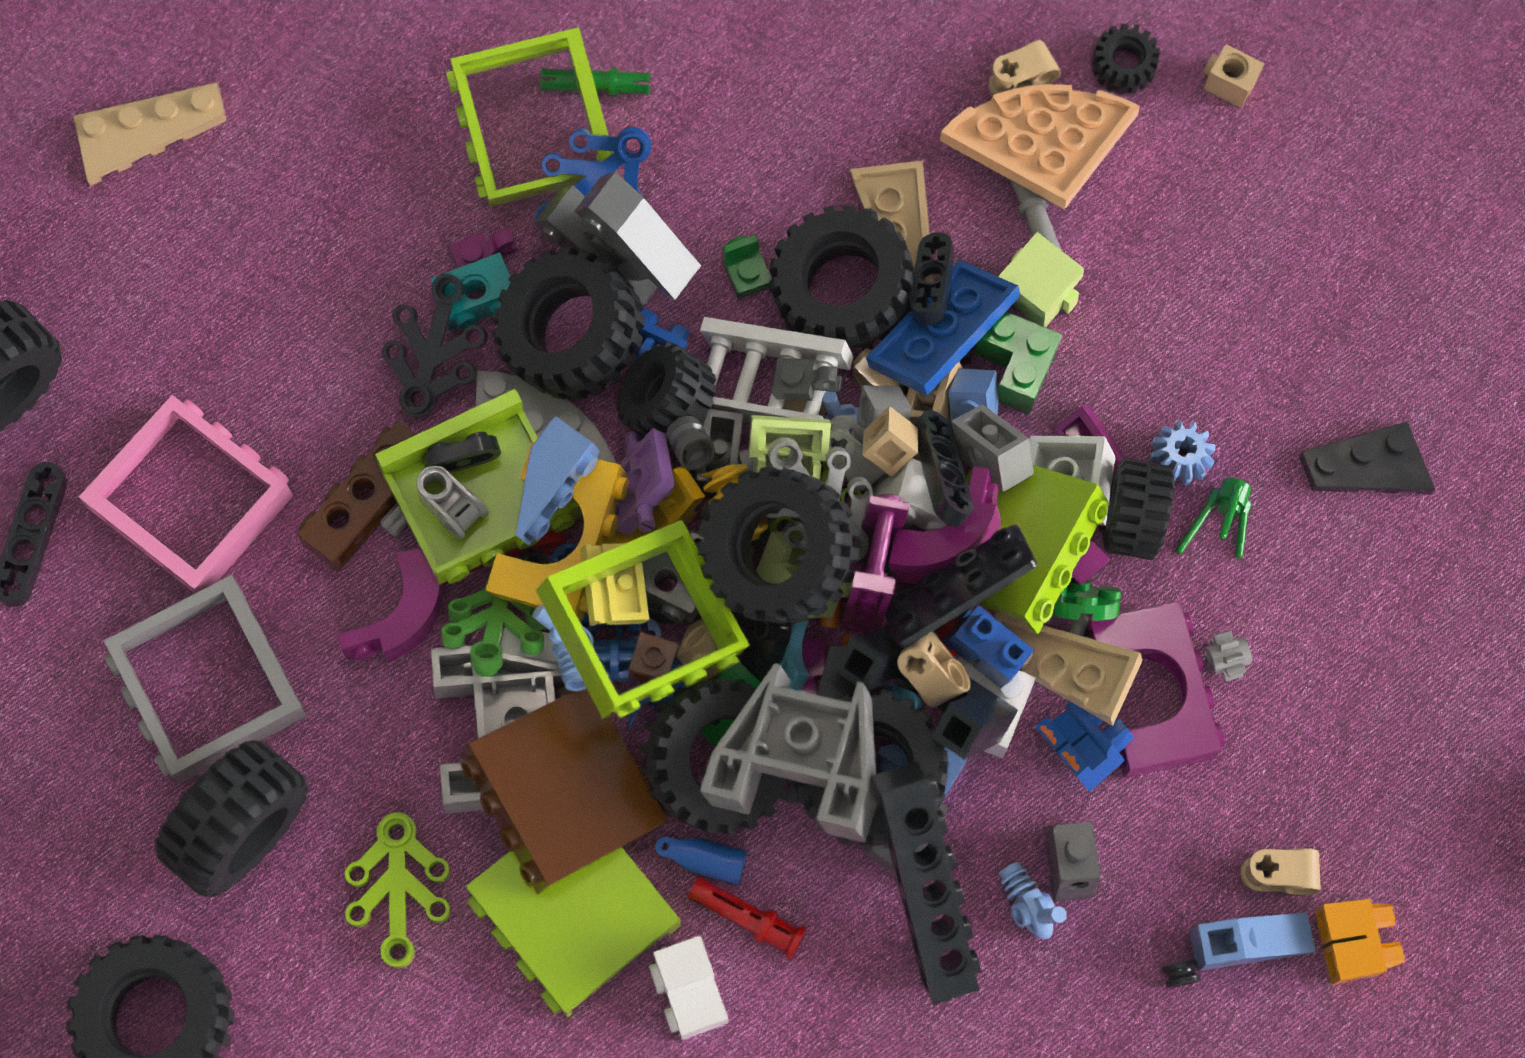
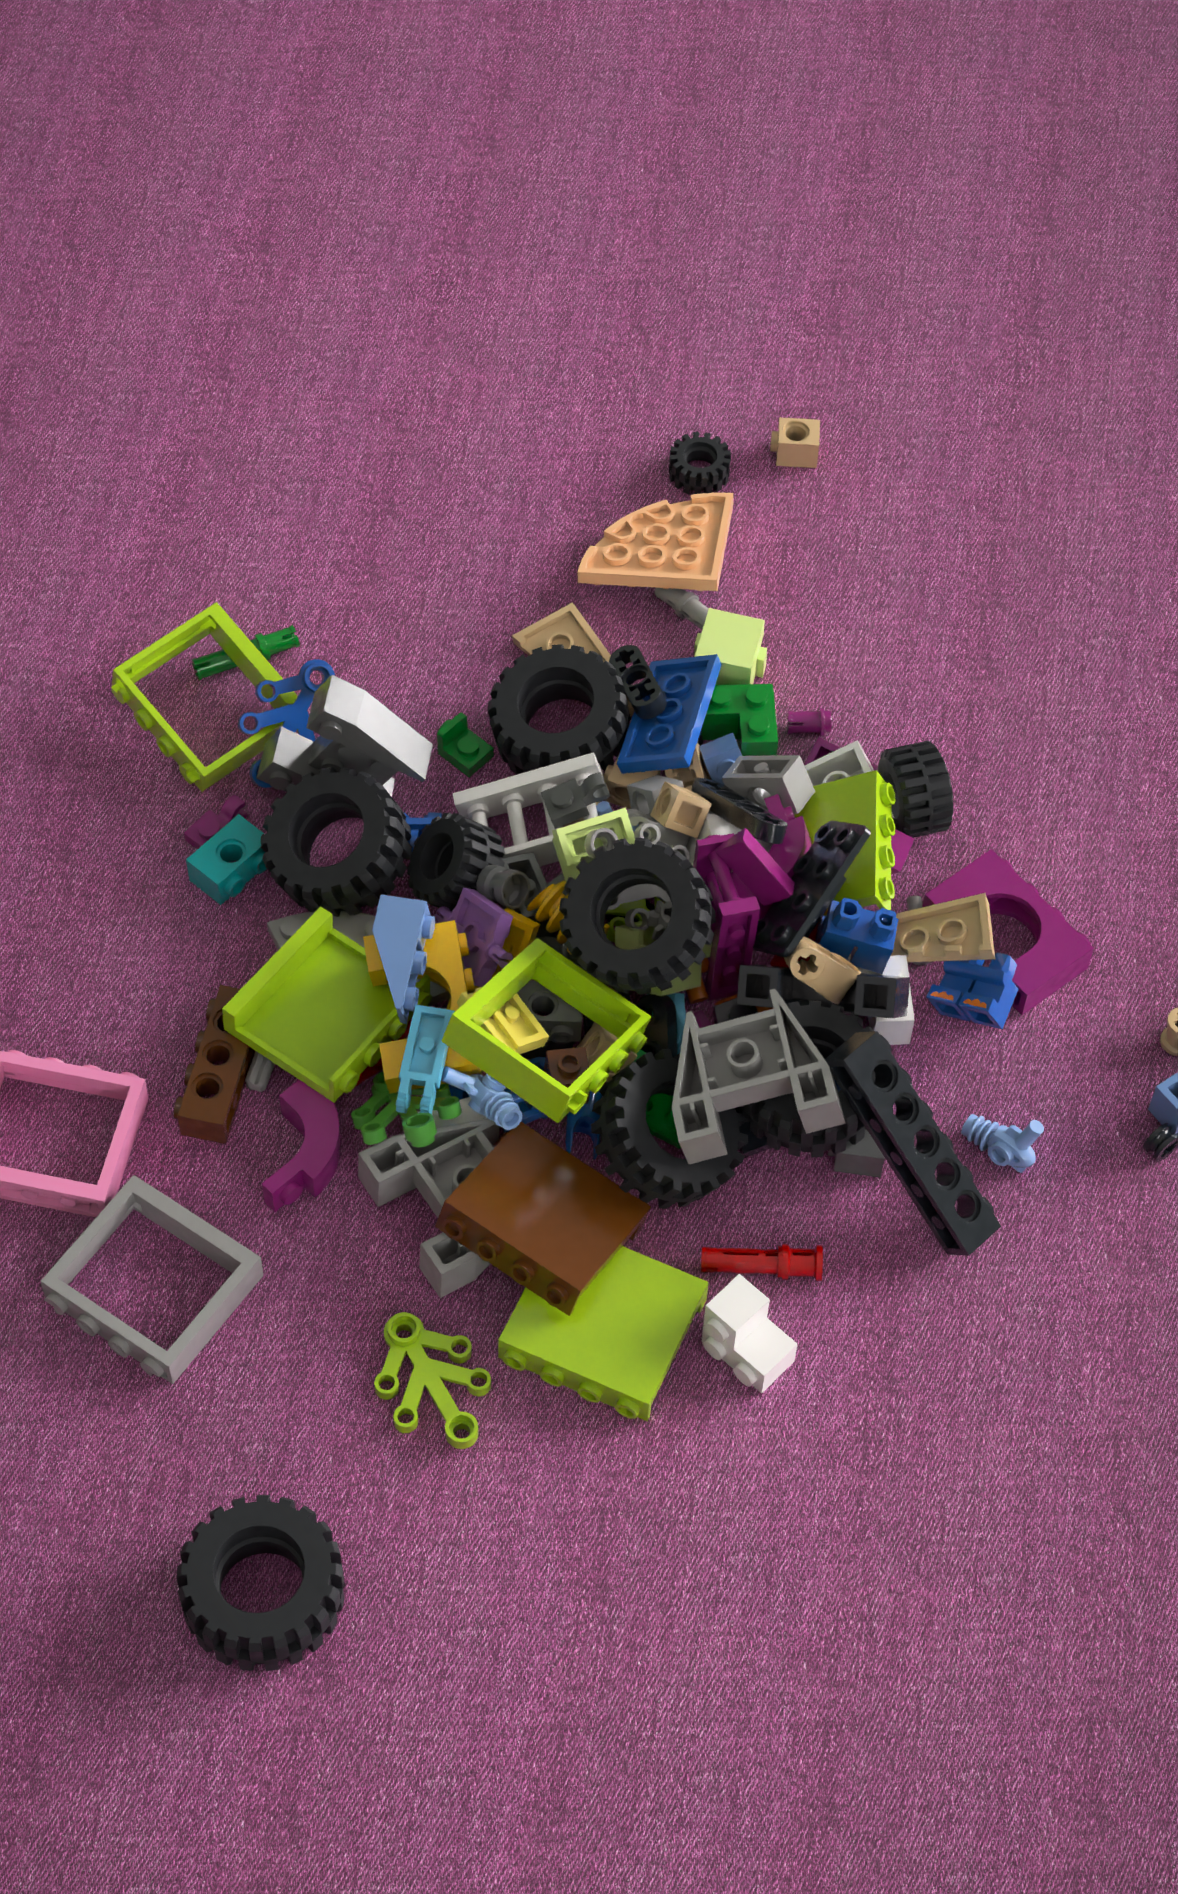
camera: 25 degrees left, 15 degrees down
(231, 818) = (253, 1365): black tyre -> none
(431, 351) = (219, 921): black plant -> none
(455, 506) = (311, 1023): light grey piece -> none
(473, 451) = (300, 982): black plate -> none
(519, 590) = (423, 1057): none -> medium azure hinge
(705, 857) = (697, 1230): blue piece -> none
(916, 546) = (756, 868): none -> magenta slope
(1023, 68) = (617, 501): tan piece -> none
(1072, 860) = (1015, 1083): dark grey torso -> none
(1084, 383) = (809, 722): none -> magenta pin
(1085, 600) = (917, 878): green plate -> none
(1197, 456) = (925, 728): light blue gear -> none
(1228, 656) = (1054, 878): light grey gear -> none
(1231, 502) = (986, 762): green plant -> none
(1371, 461) = (1081, 686): black wing -> none

